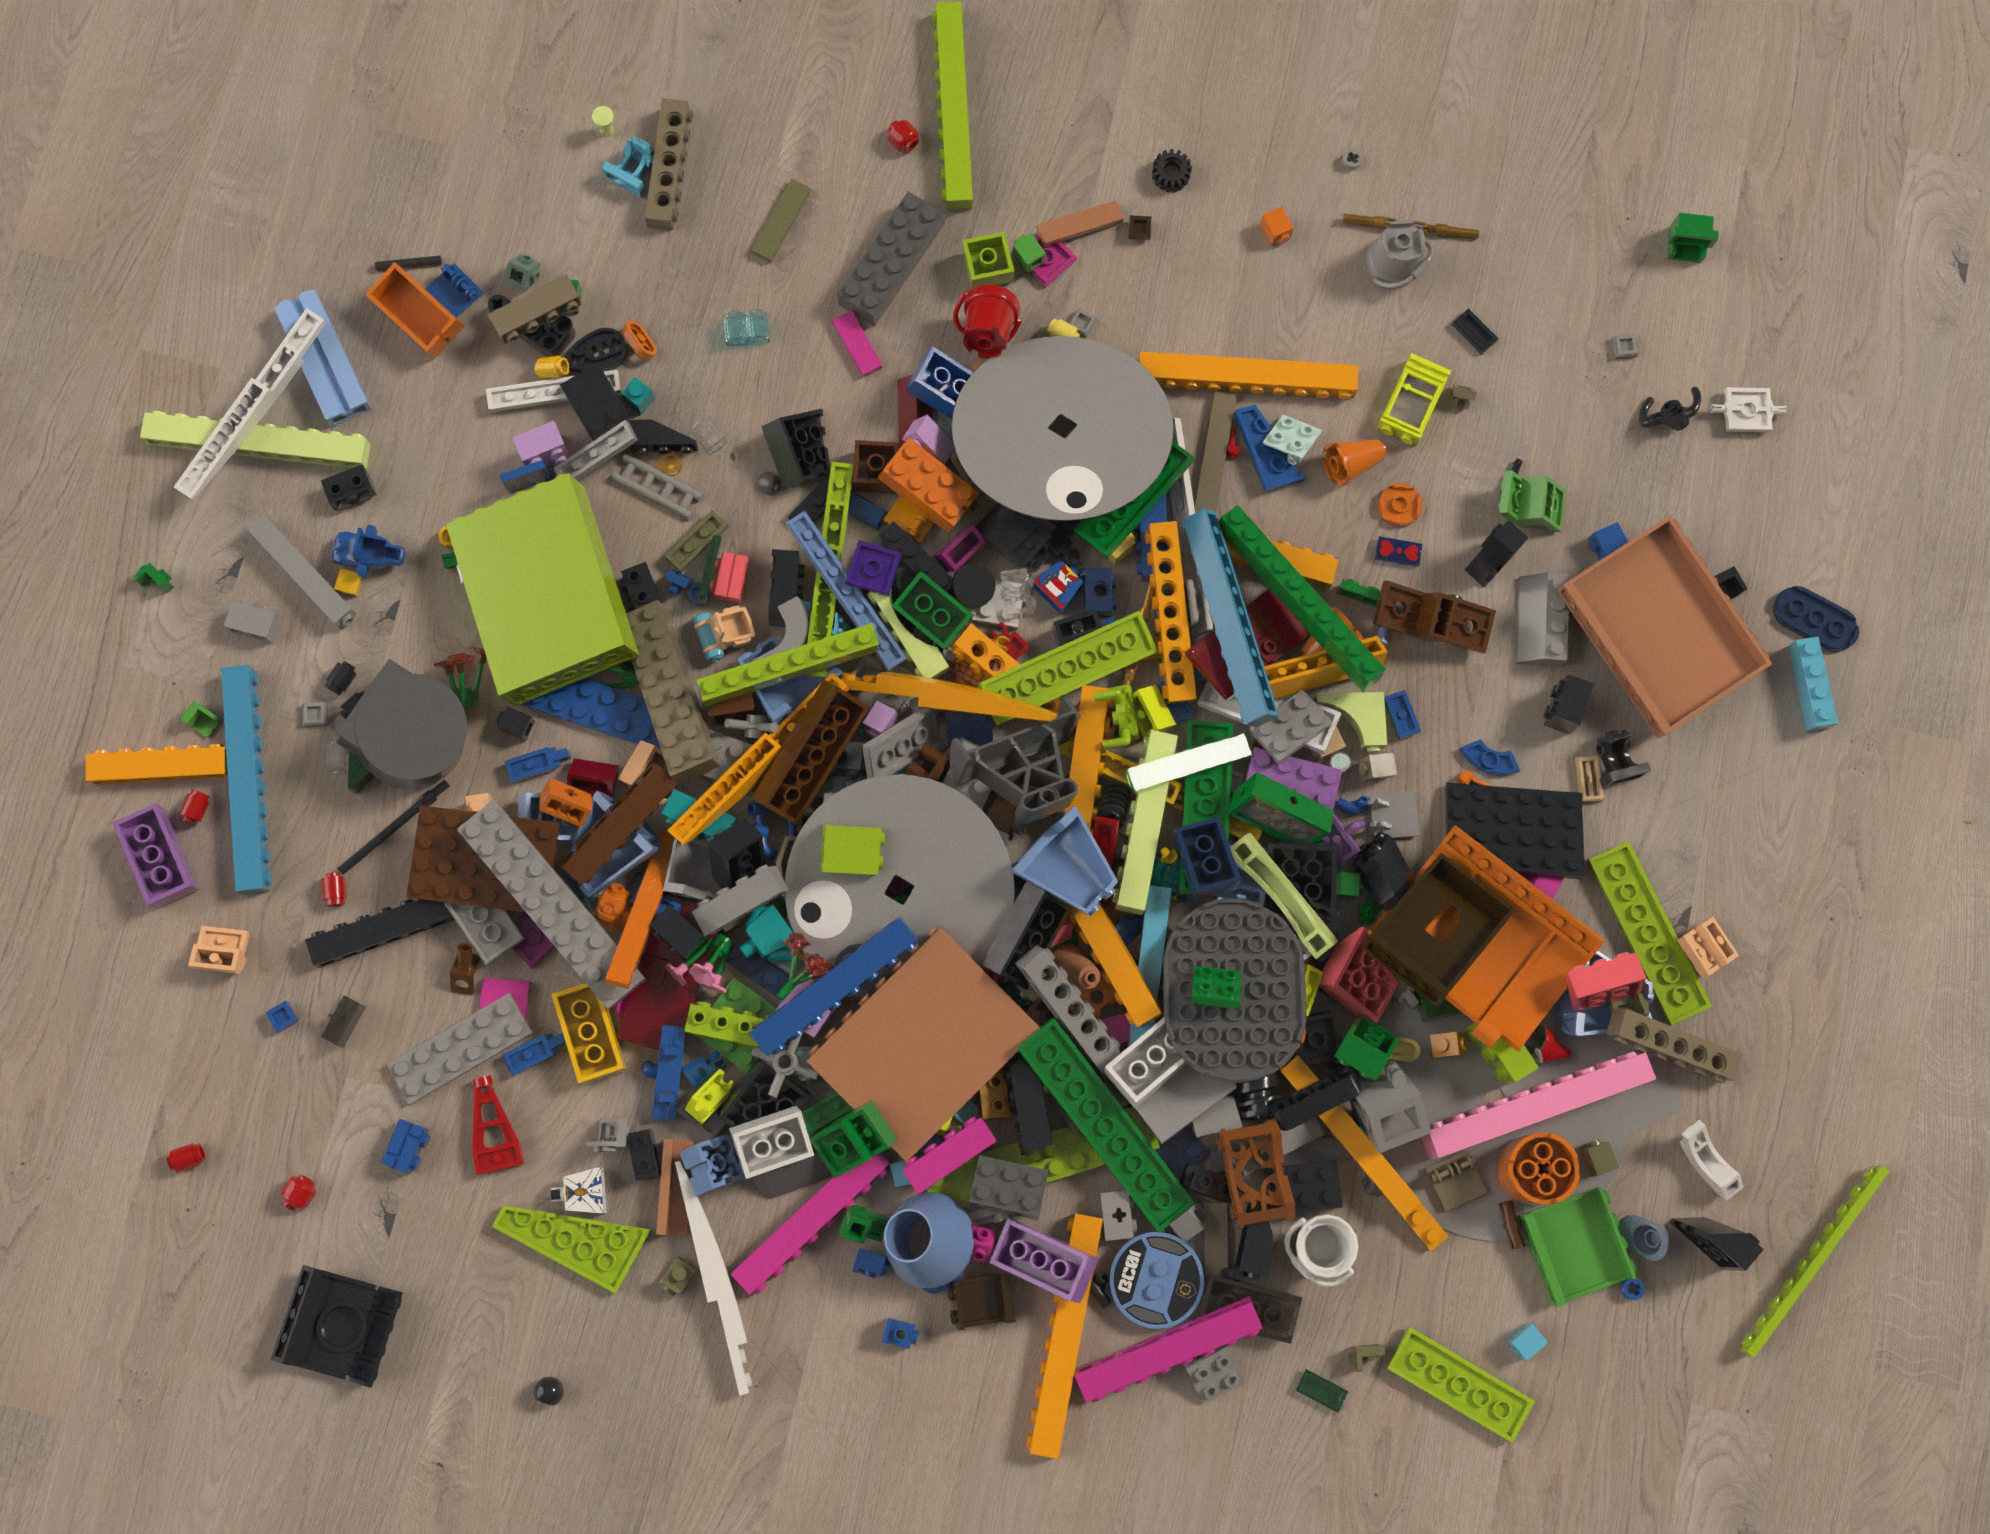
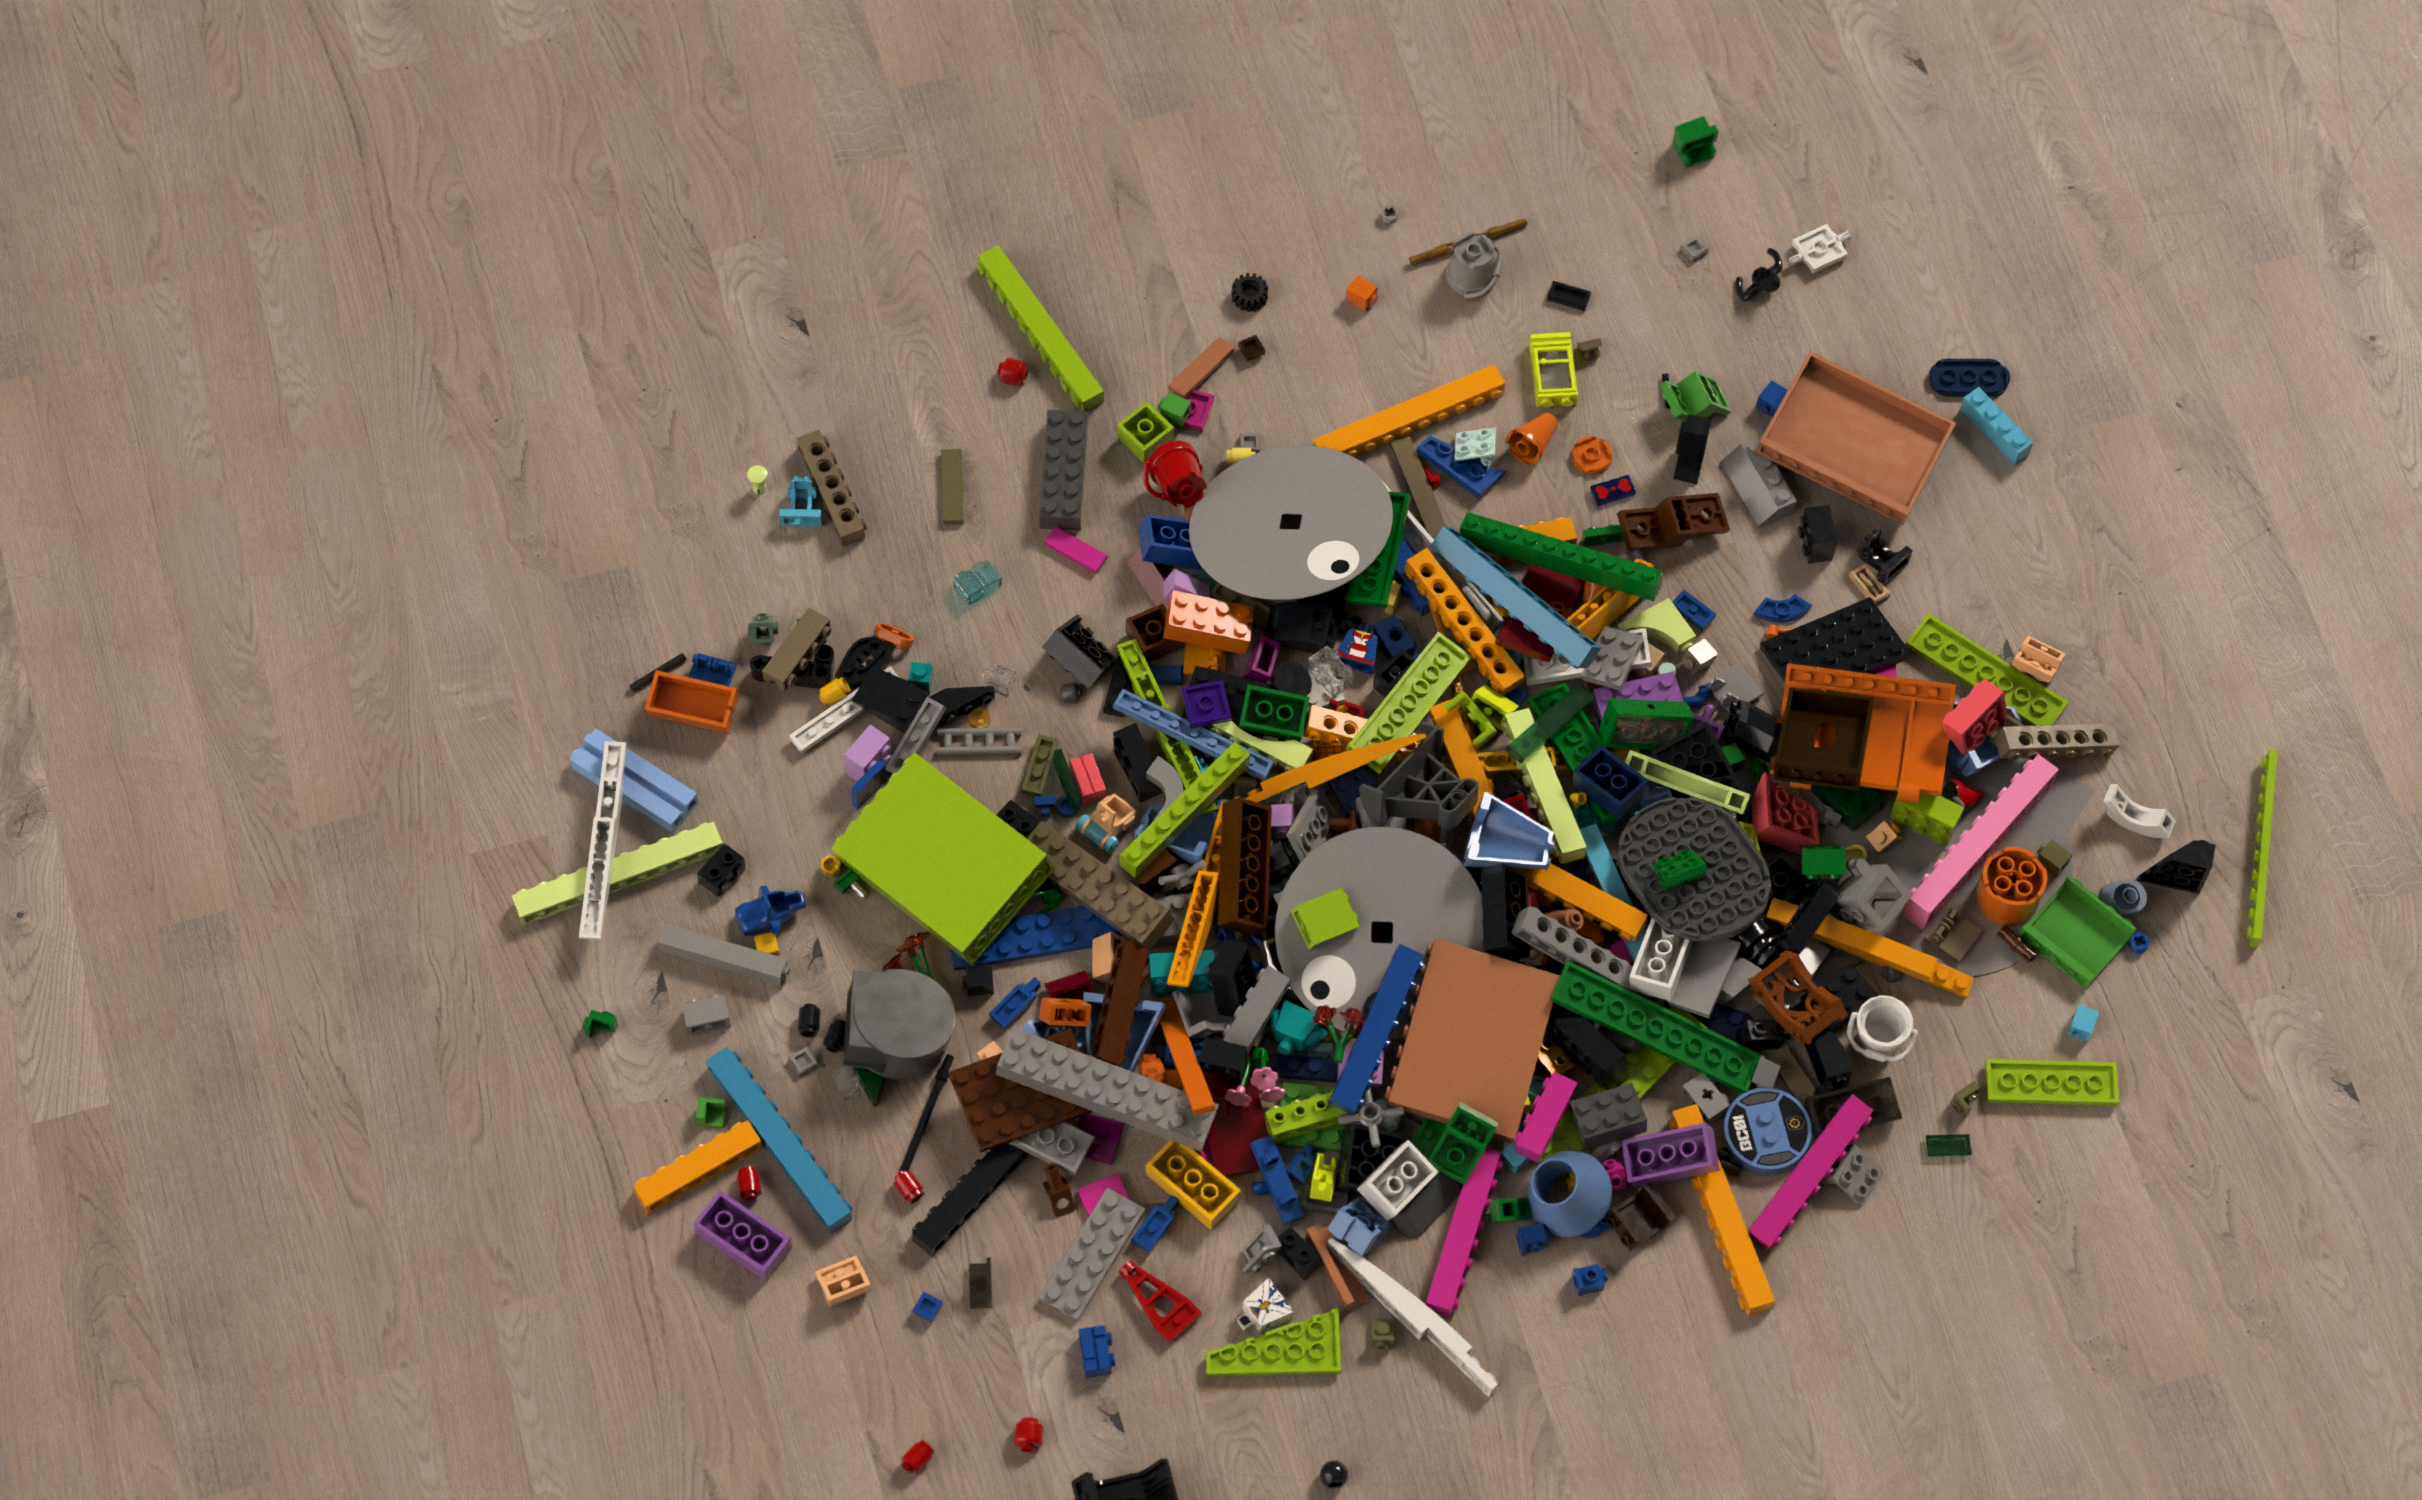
camera: 25 degrees left, 15 degrees down
(1731, 583) = (1888, 380): black panel -> none

